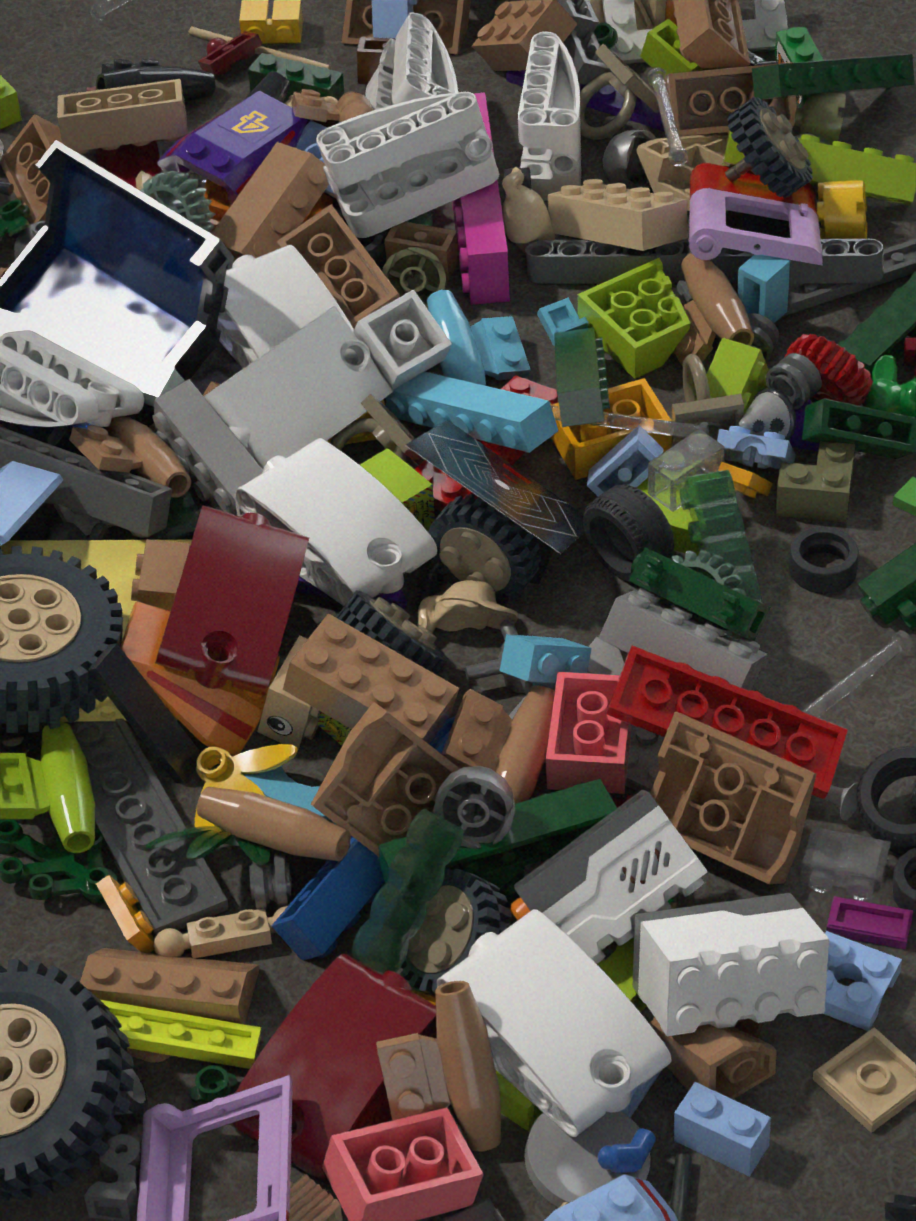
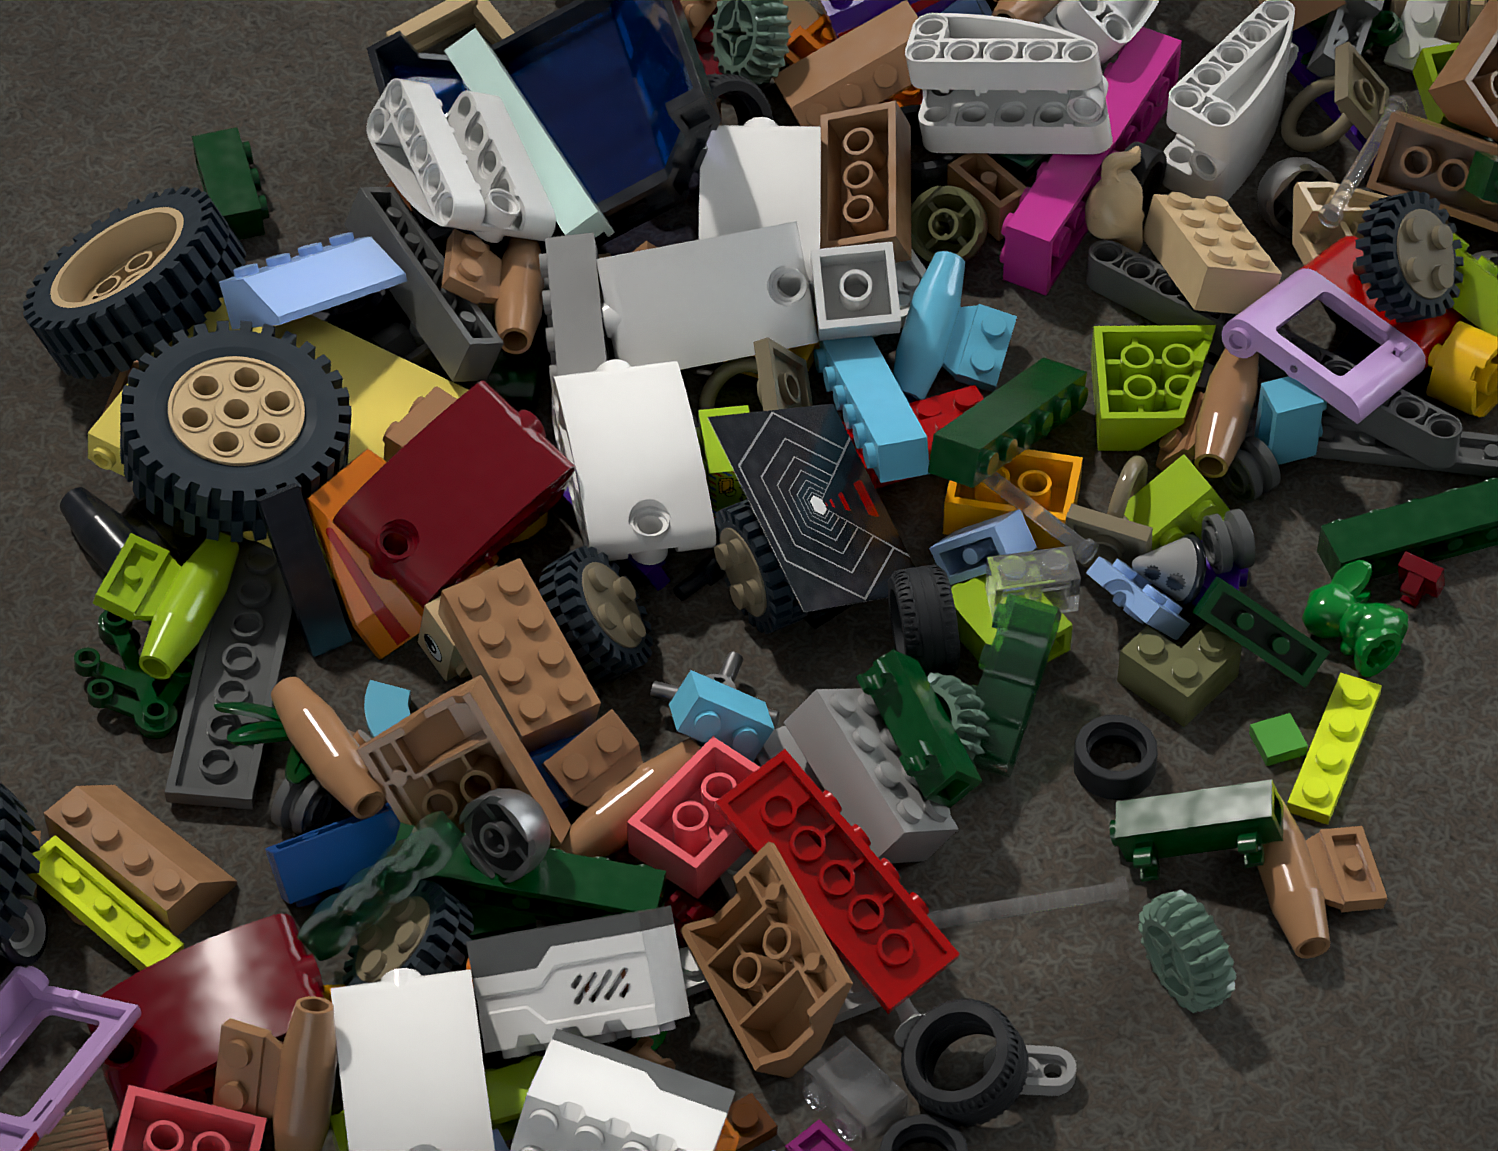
camera: 30 degrees right, 5 degrees up
(131, 921) = (152, 764): light orange plate -> none
(210, 1077) = (98, 966): dark green plate -> none
(219, 934) = (219, 829): tan plate -> none
(231, 769) = (351, 670): yellow plant -> none
(464, 606) = (704, 614): tan hair -> none
(560, 318) = (1071, 344): medium azure bracket -> none
(746, 481) = (1097, 623): light orange plate -> none
(841, 373) = (1283, 549): red gear -> none

